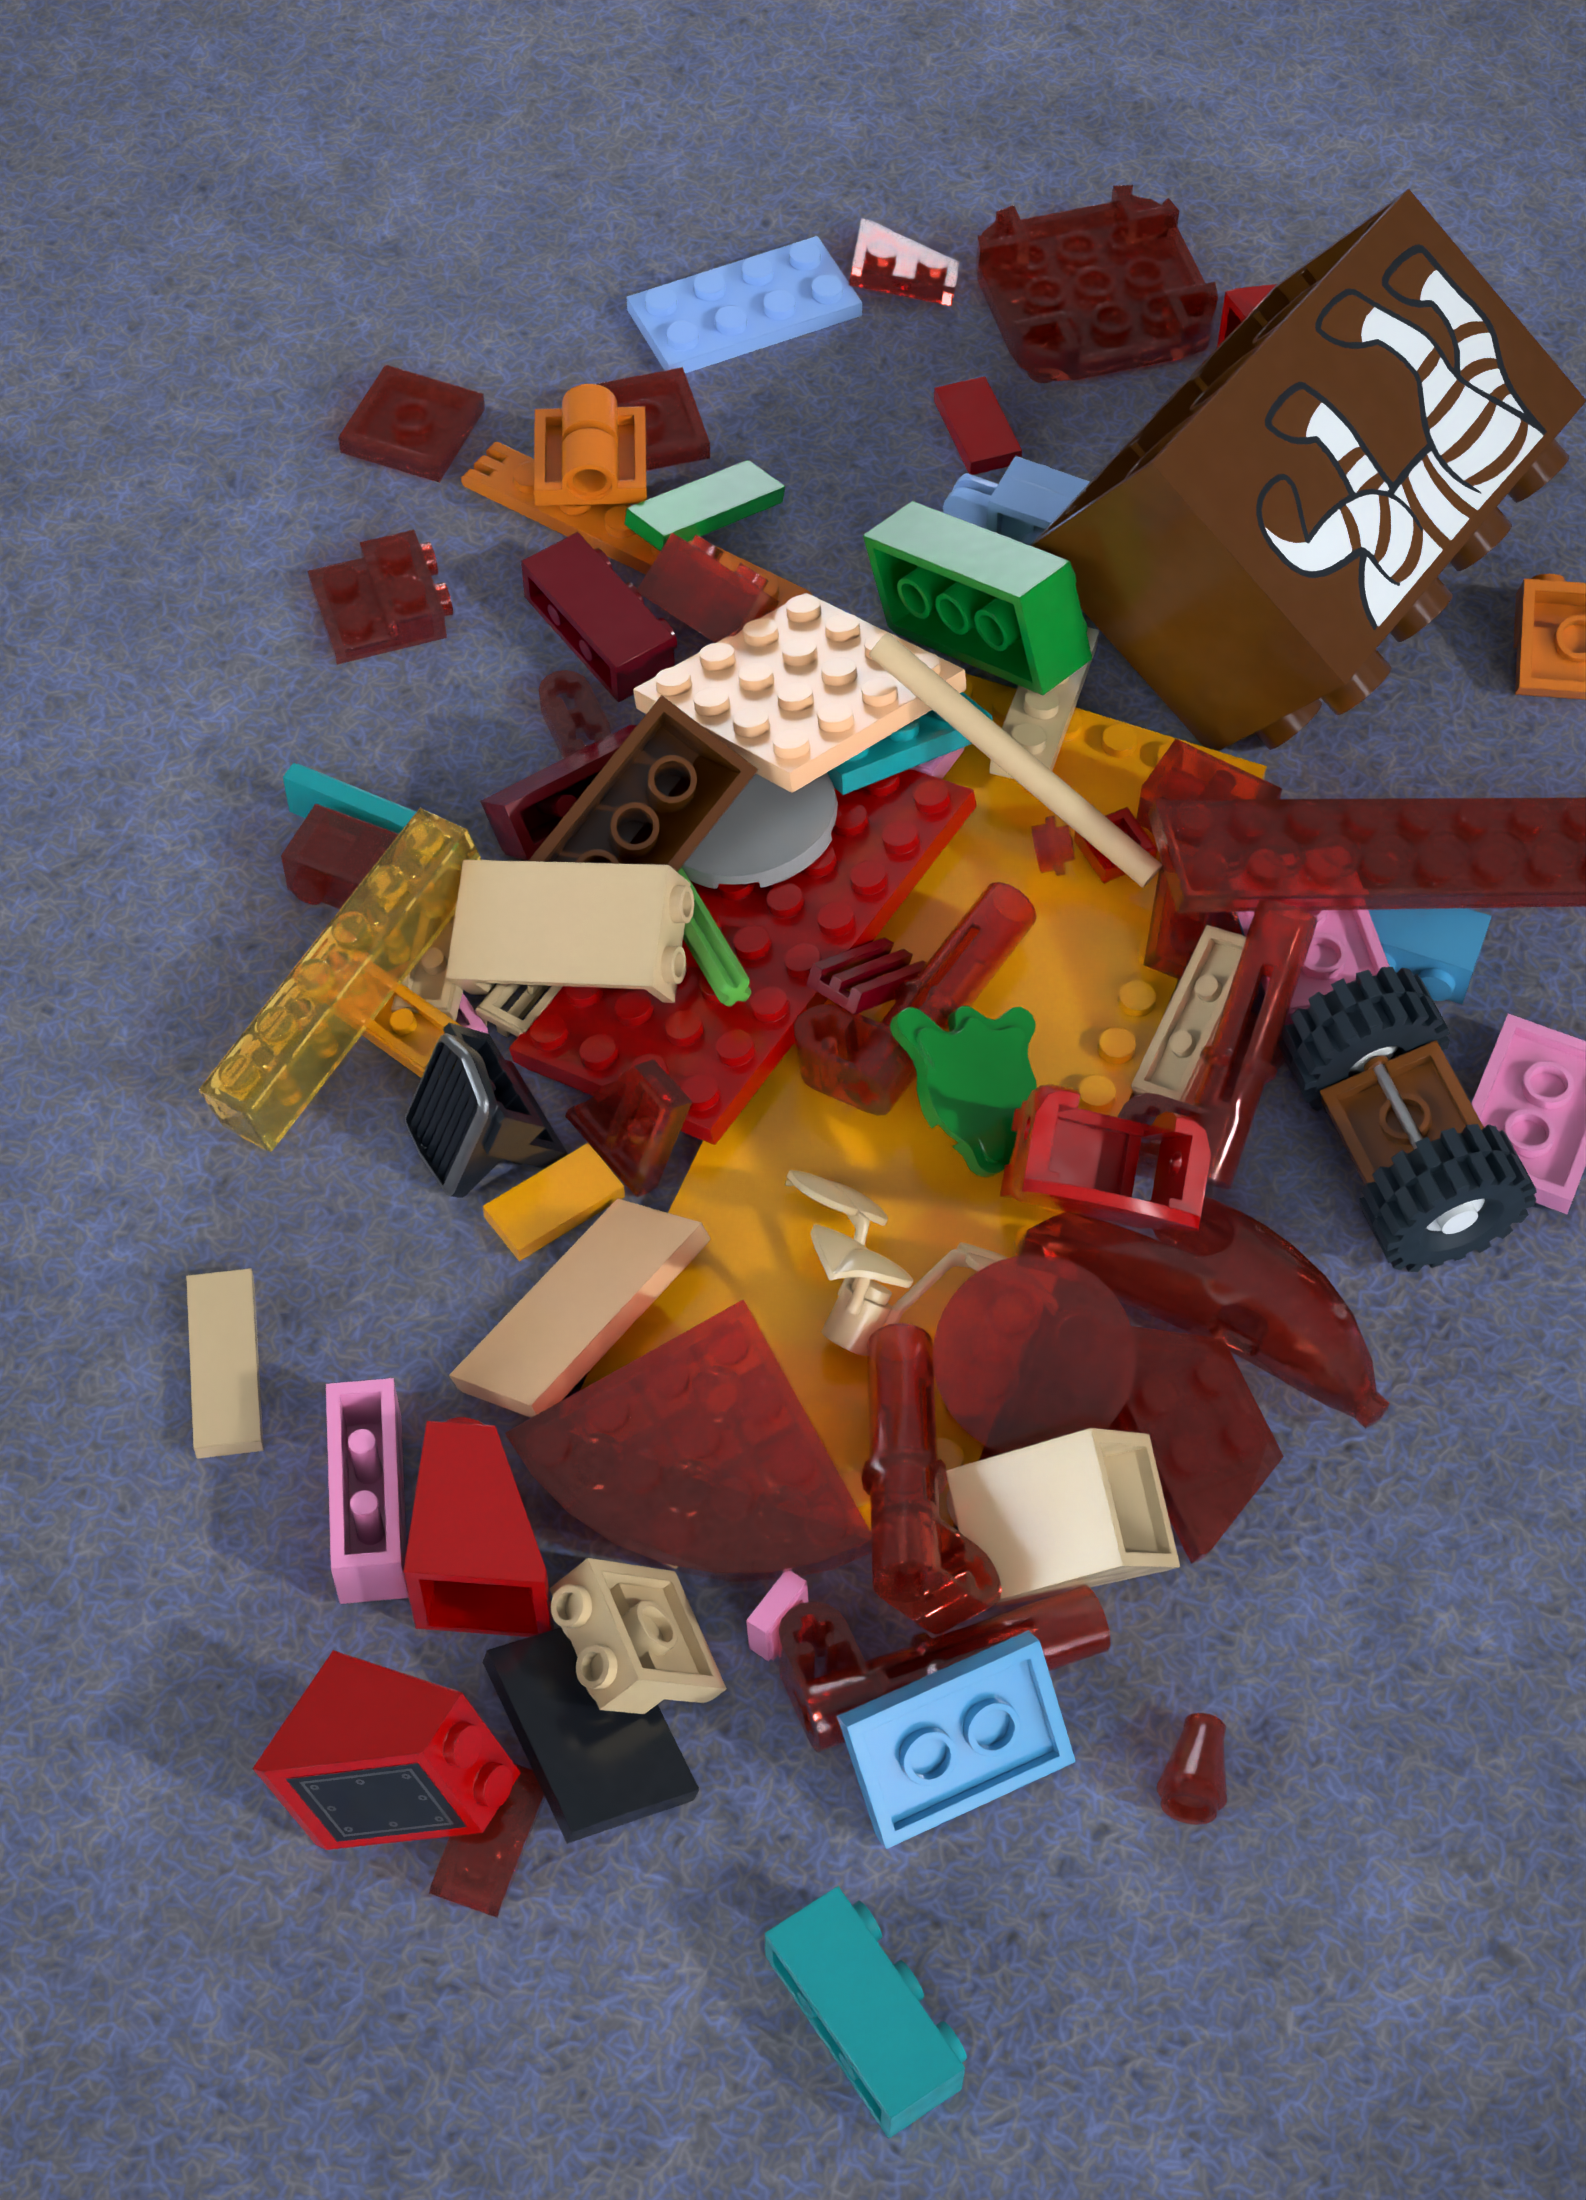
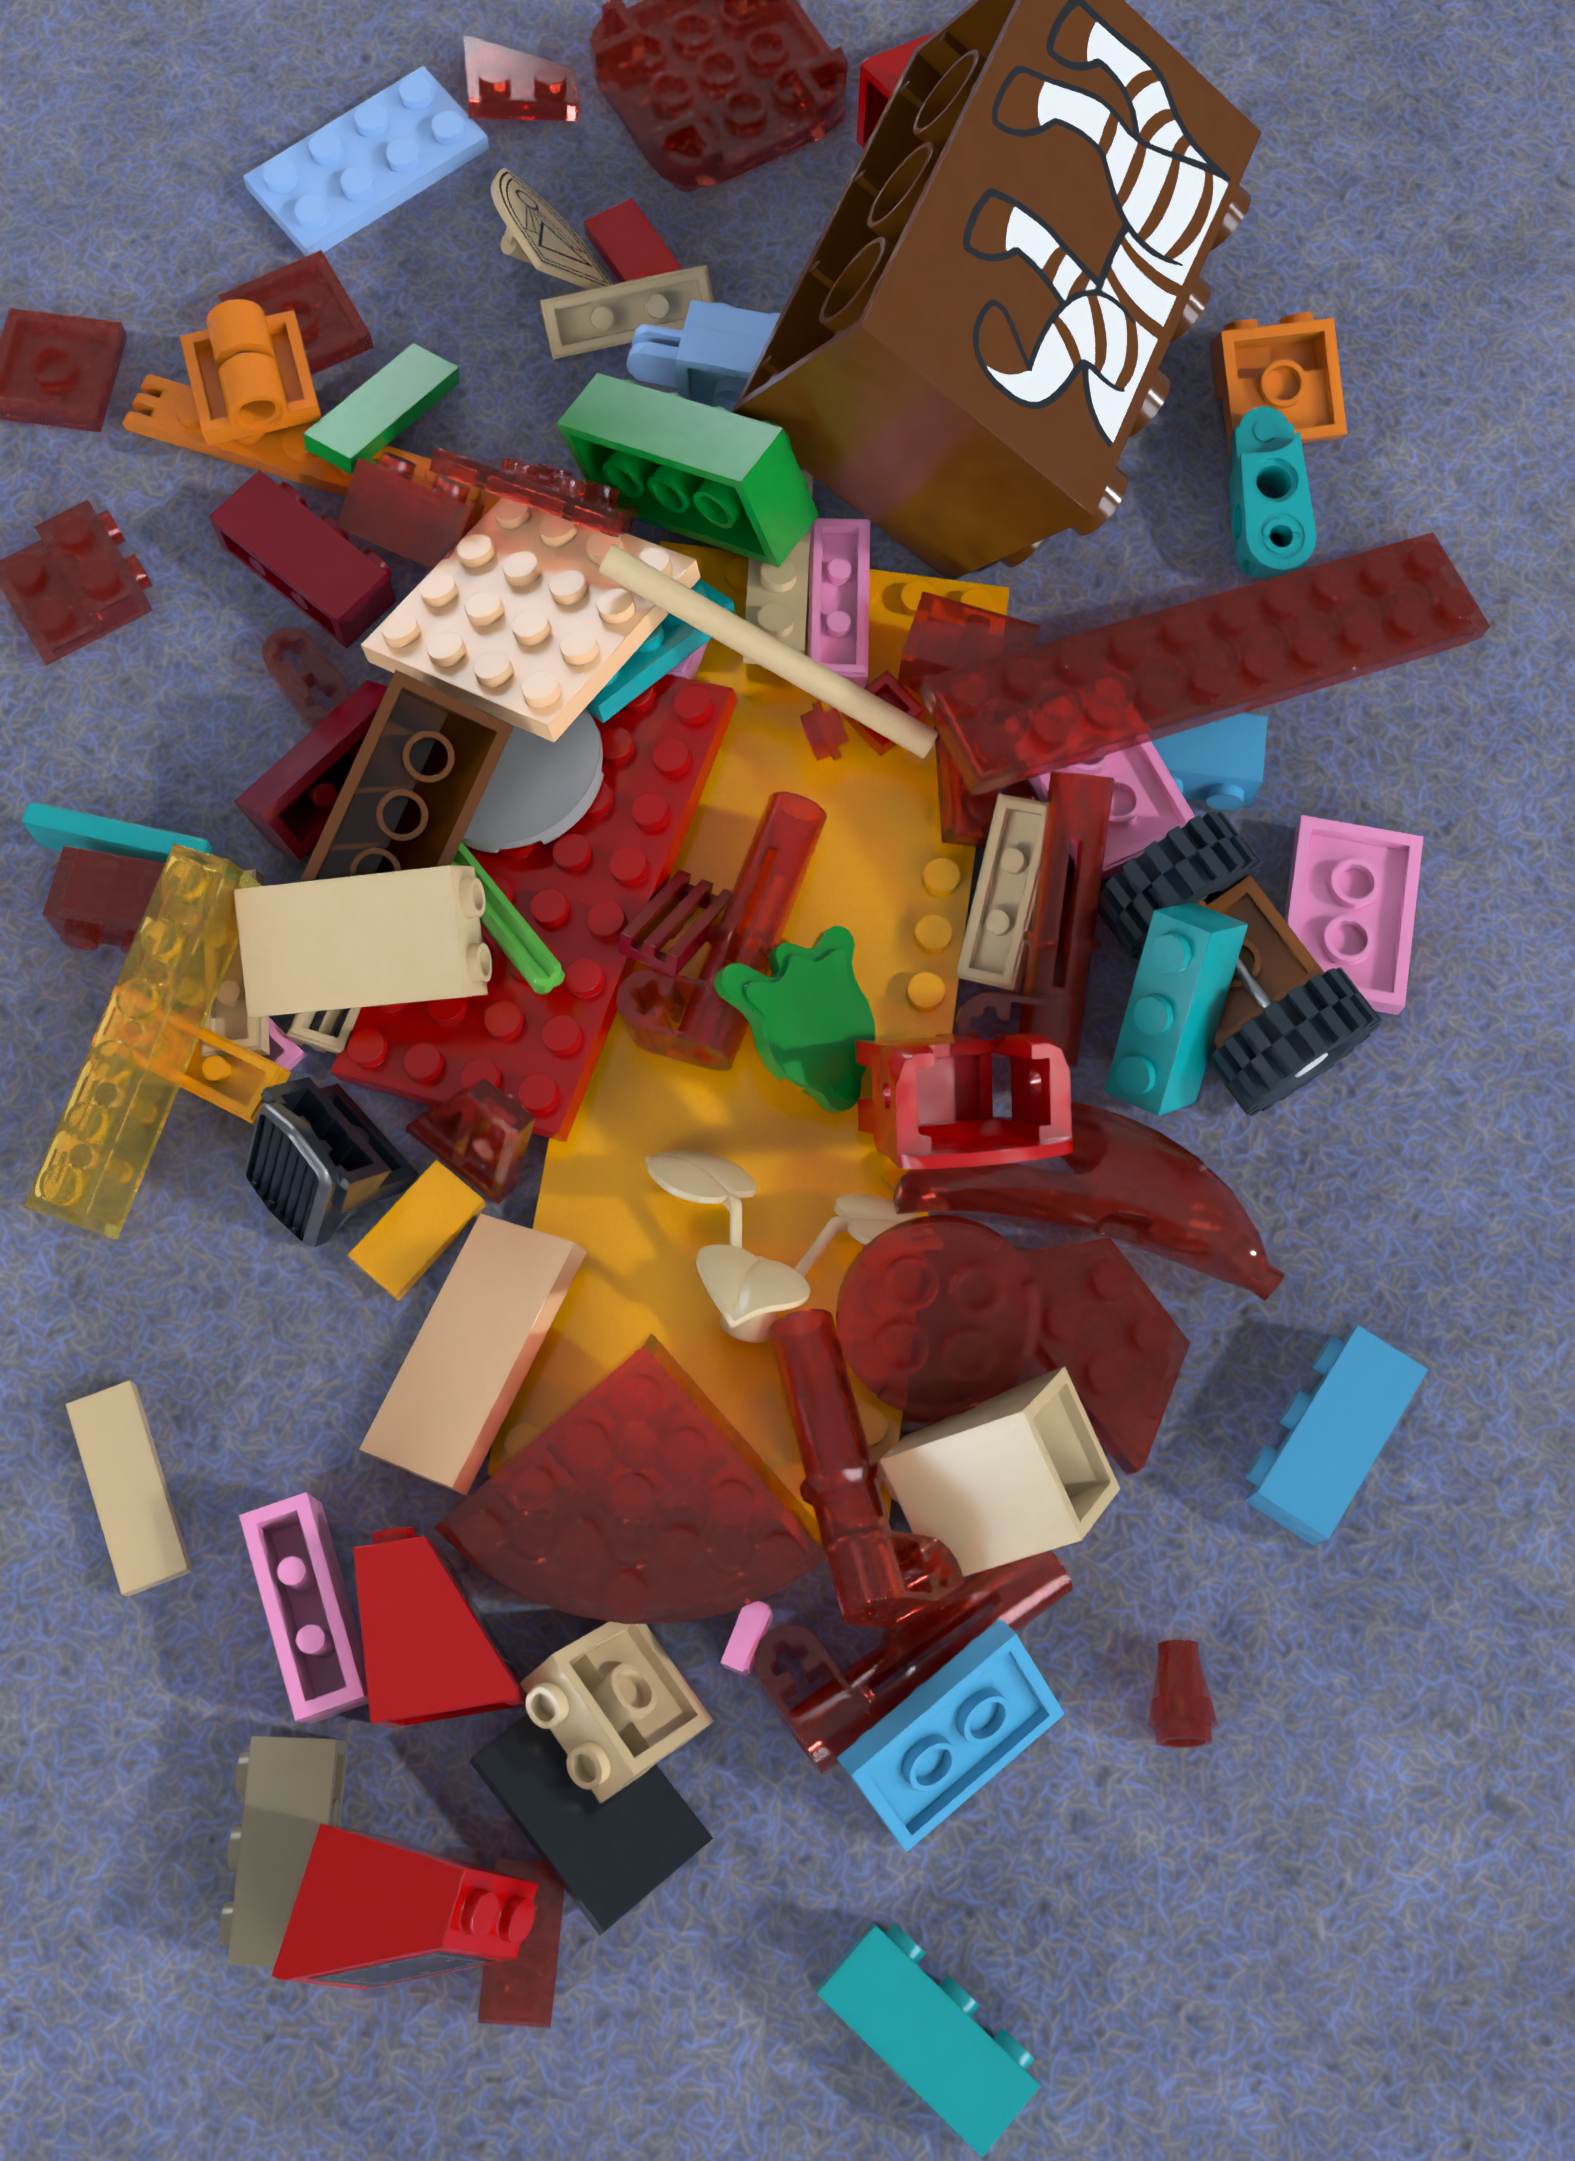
camera: 15 degrees left, 15 degrees up
(292, 1648) = (287, 1794): none -> dark tan brick
(845, 593) = (542, 488): none -> clear red wing
(890, 392) = (541, 235): none -> tan shield
(934, 467) = (613, 312): none -> tan tile
(1098, 734) = (840, 596): none -> bright pink tile
(1333, 1139) = (1175, 1007): none -> teal brick
(1407, 1565) = (1333, 1434): none -> dark azure brick
(1548, 696) = (1269, 454): none -> teal piece

